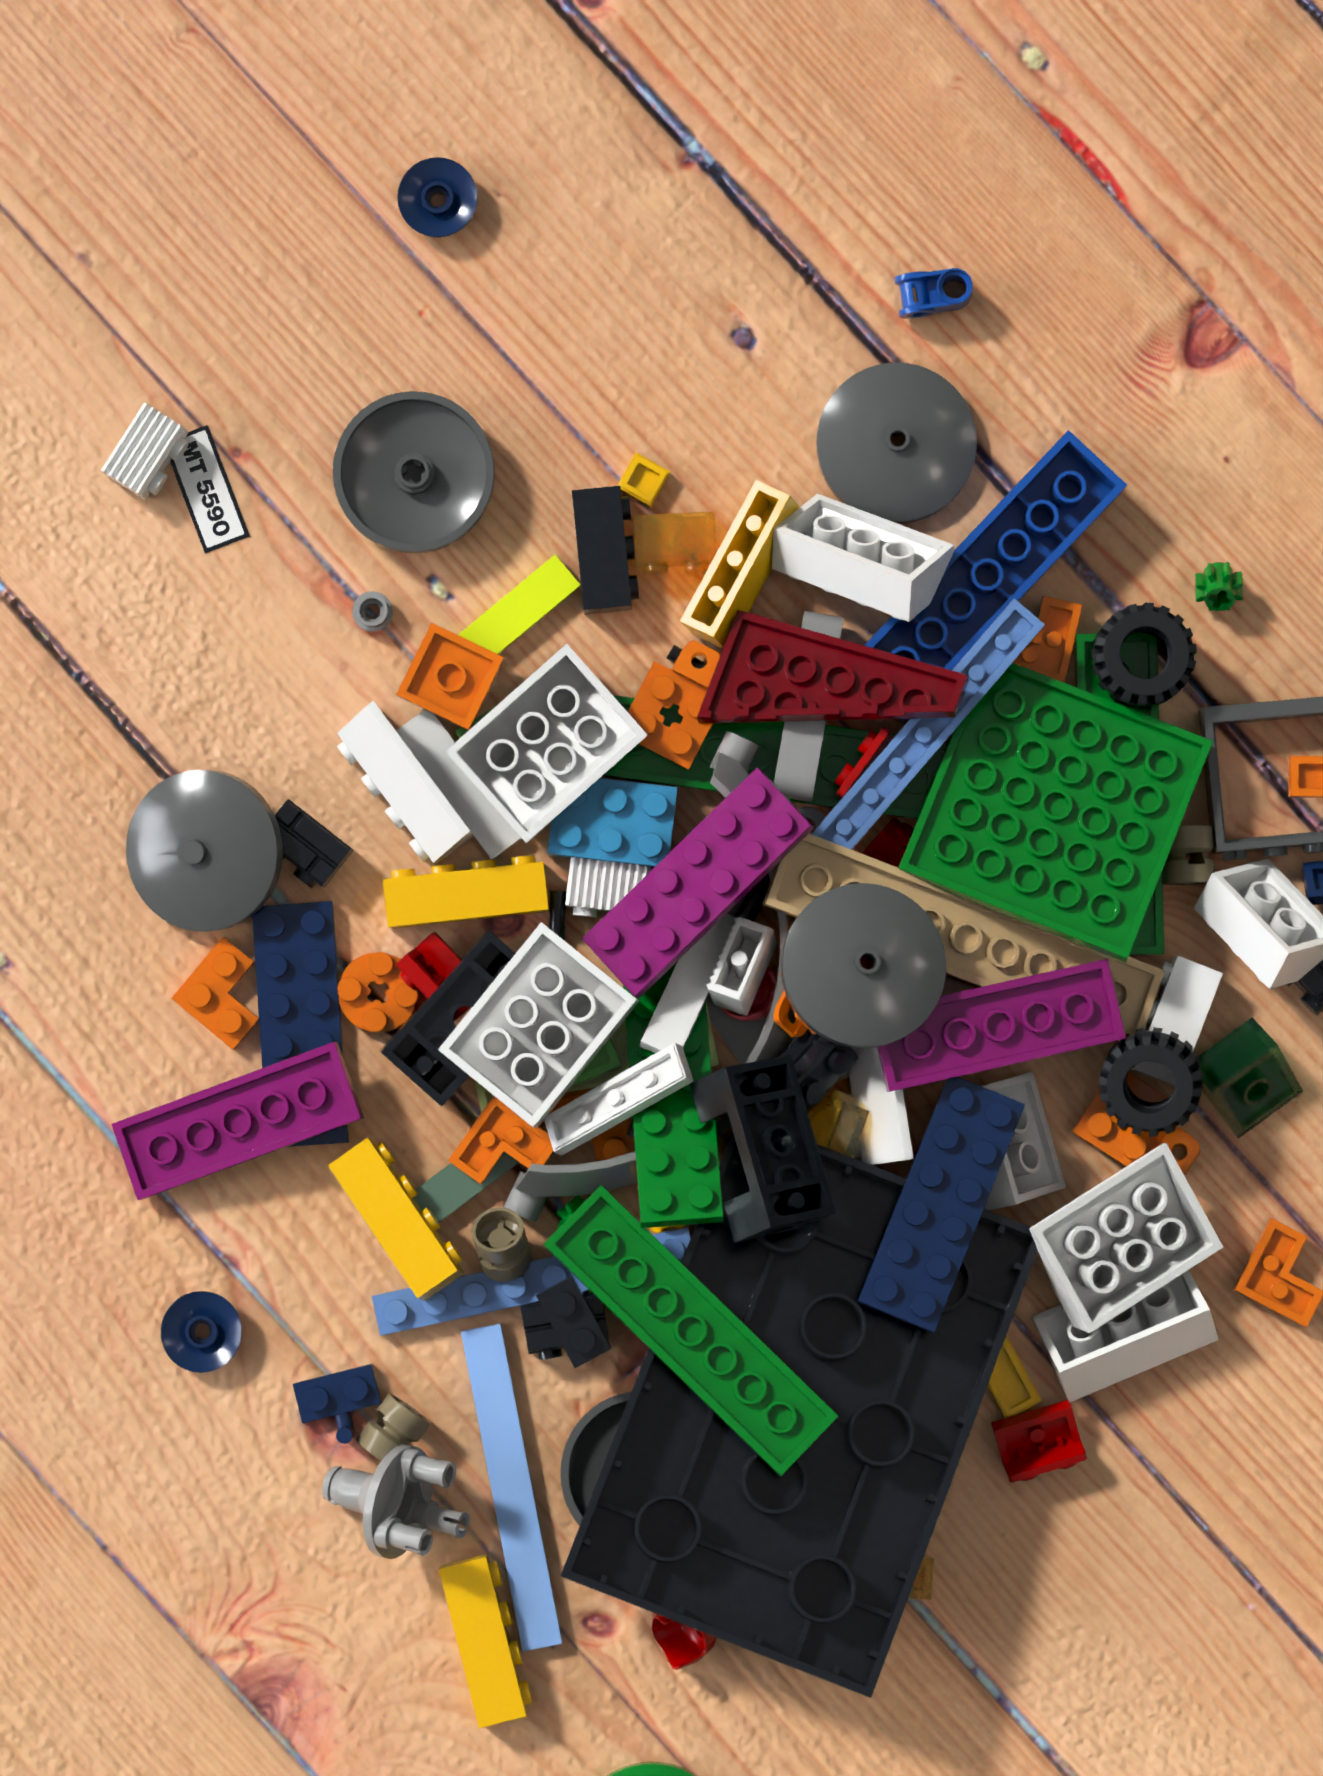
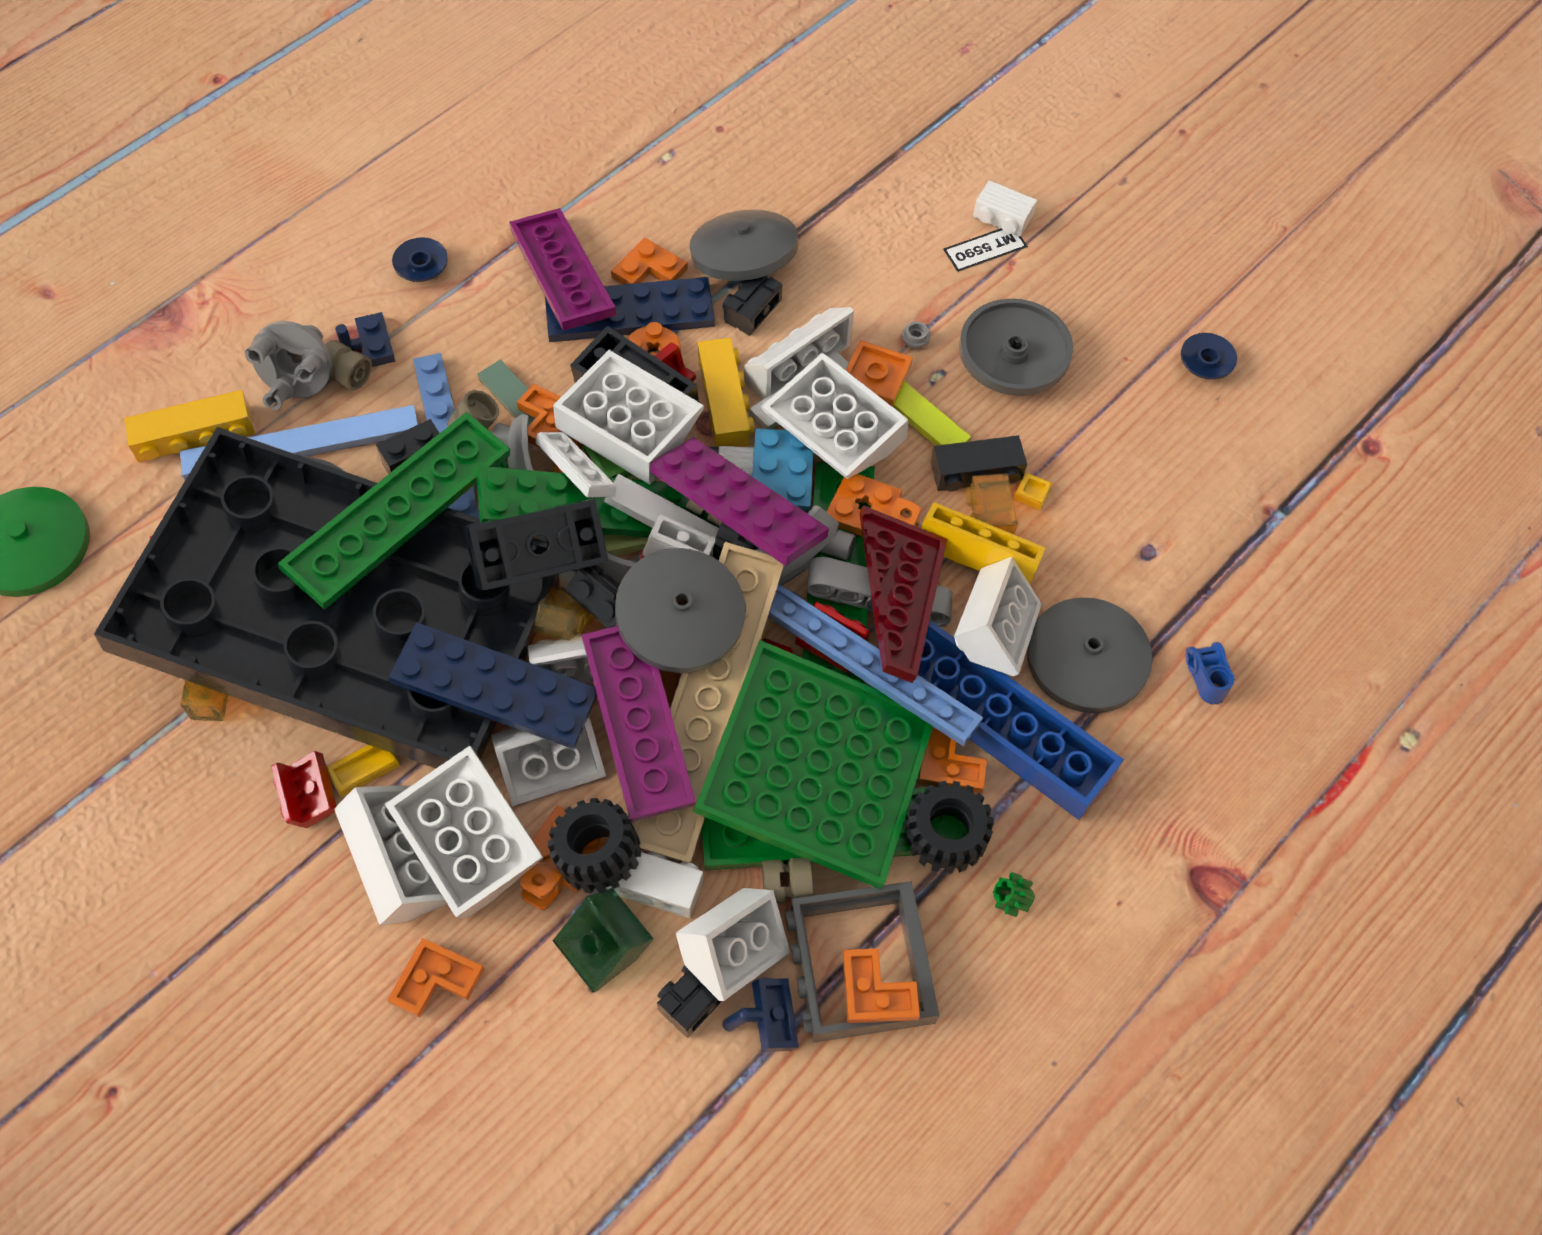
camera: 85 degrees right, 25 degrees down
(396, 1218) = (492, 357): yellow brick -> none

